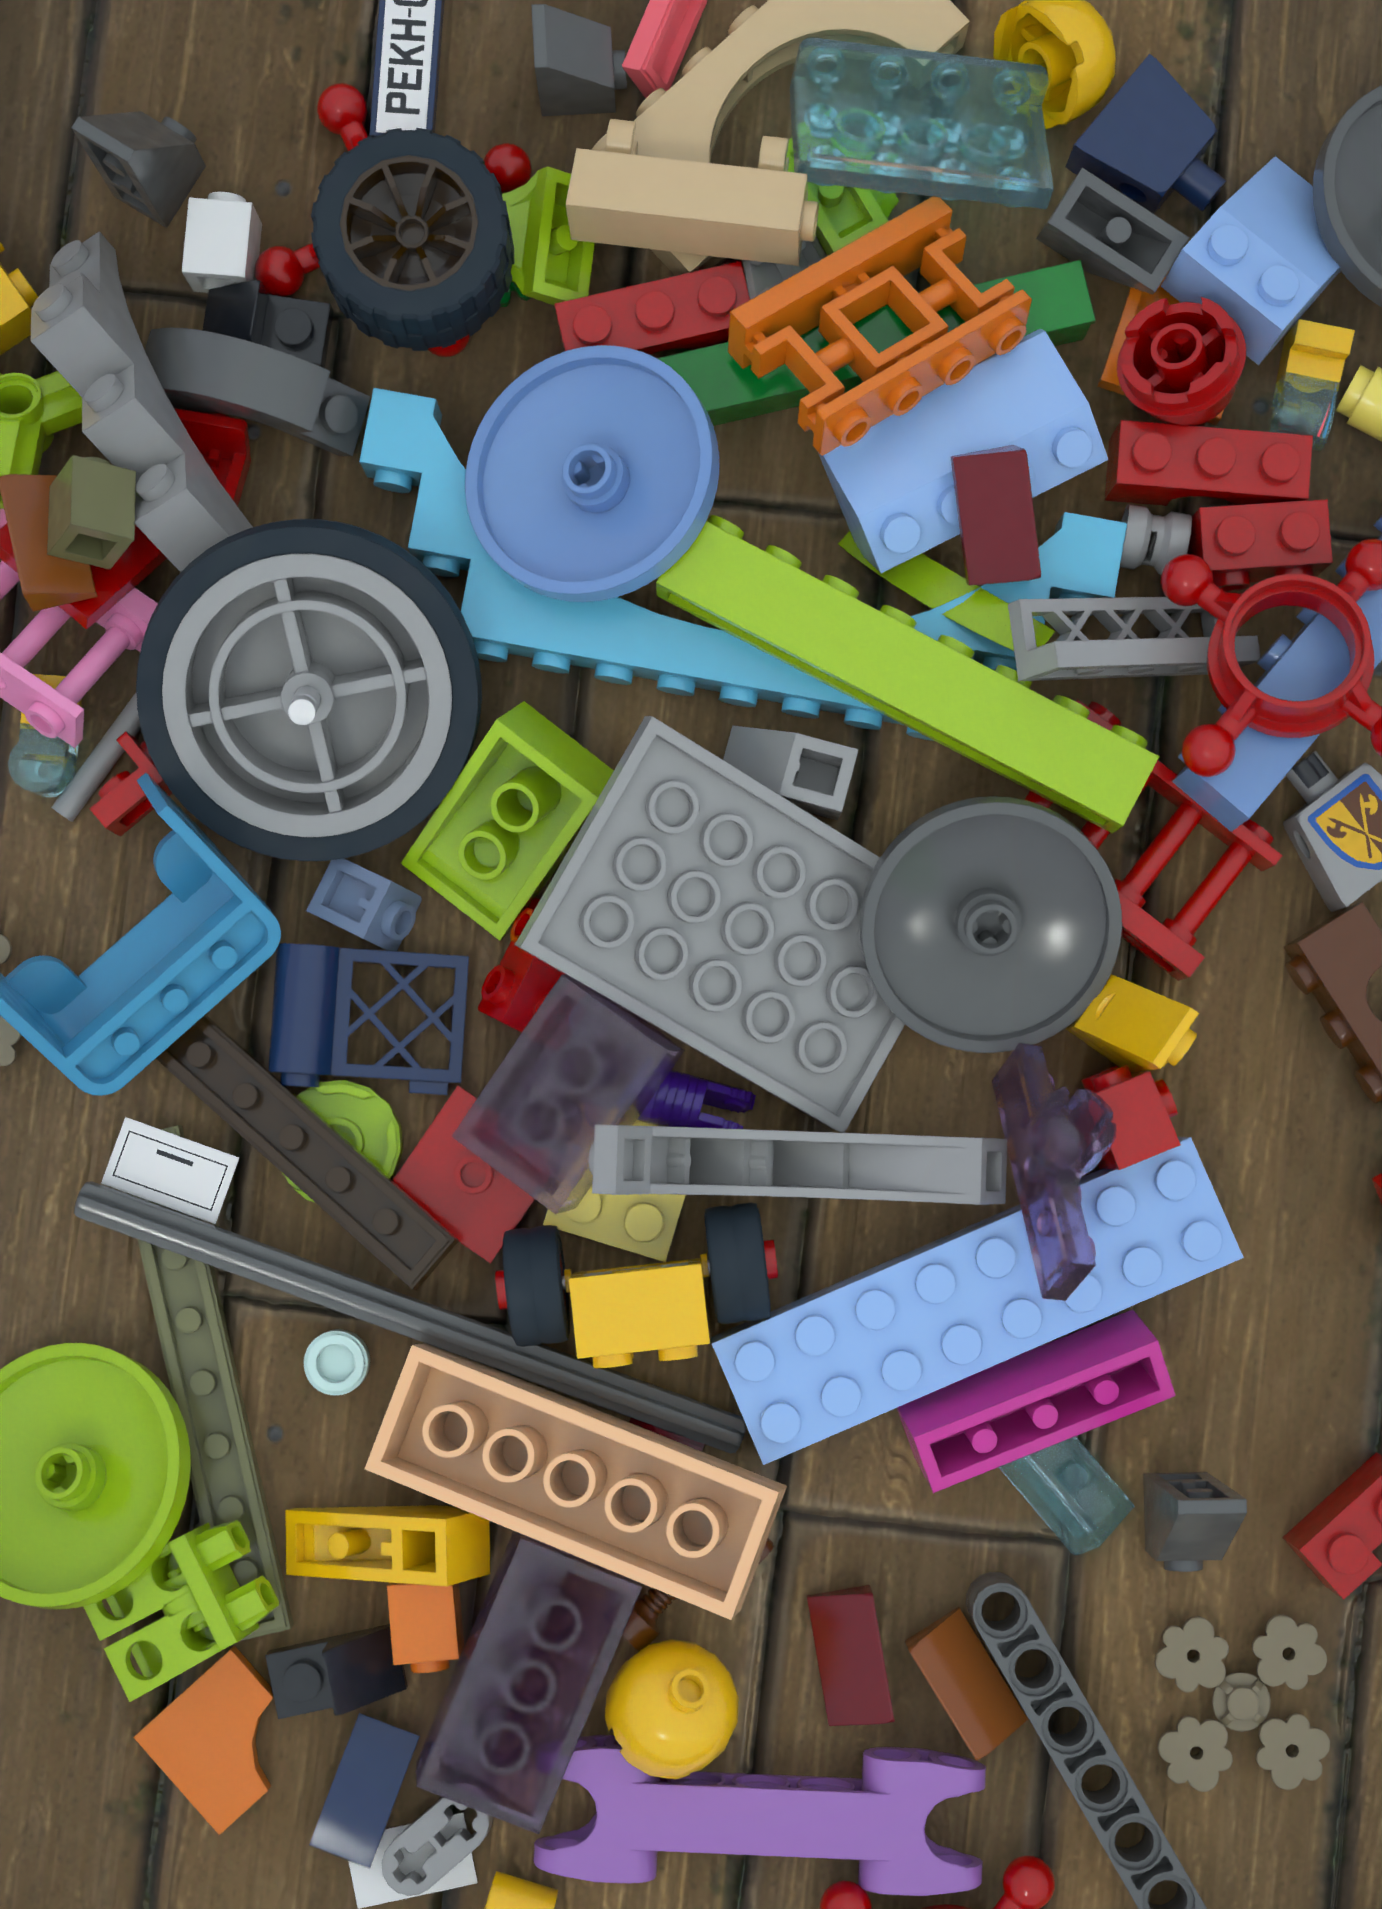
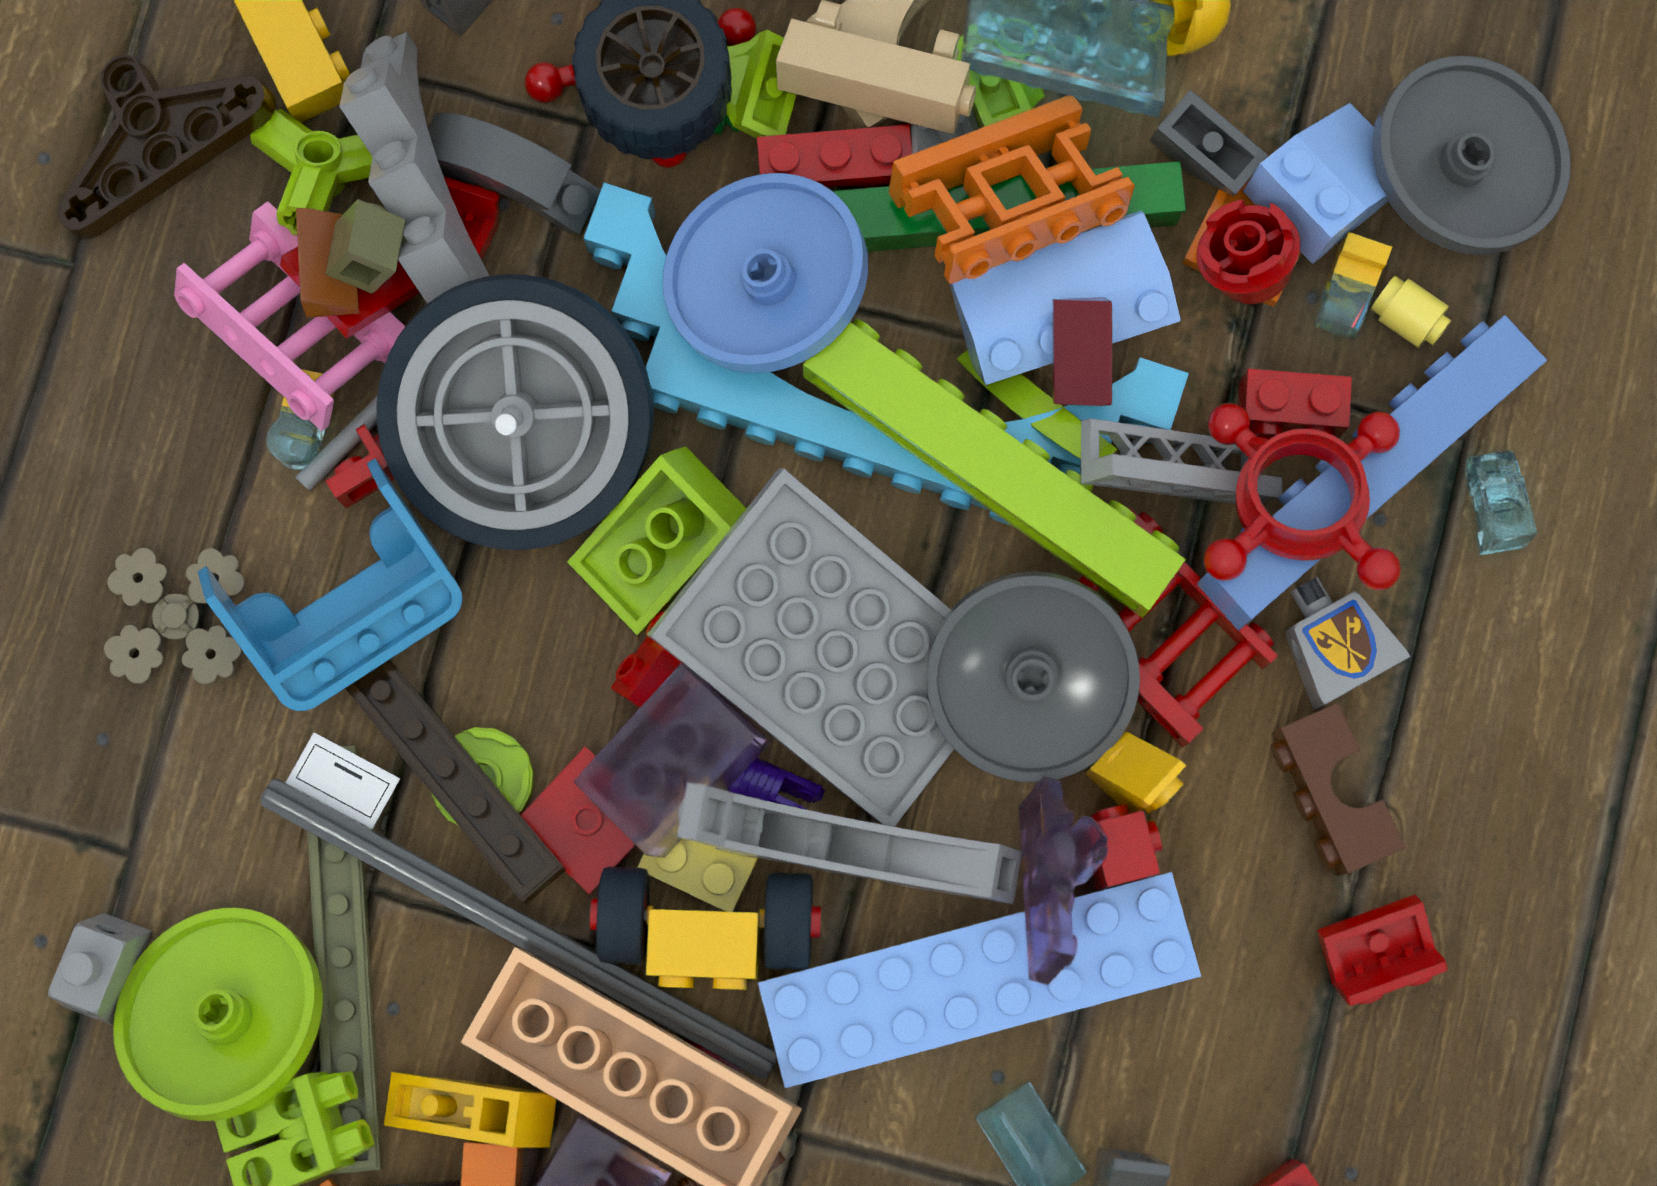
camera: 10 degrees right, 5 degrees down
(220, 241) = (501, 55): white brick -> none
(270, 320) = (531, 119): black slope -> none
(314, 1015) = (478, 674): dark blue piece -> none
(337, 1362) = (452, 957): light aqua tile -> none
(365, 904) = (533, 590): sand blue bracket -> none
(795, 766) = (896, 529): light grey slope -> none
(1036, 1400) = (1015, 1069): dark pink brick -> none
(1150, 142) = (1250, 78): dark blue torso -> none
(1167, 540) = (1222, 387): light grey wheel -> none
(1174, 461) = (1229, 330): red arch -> none

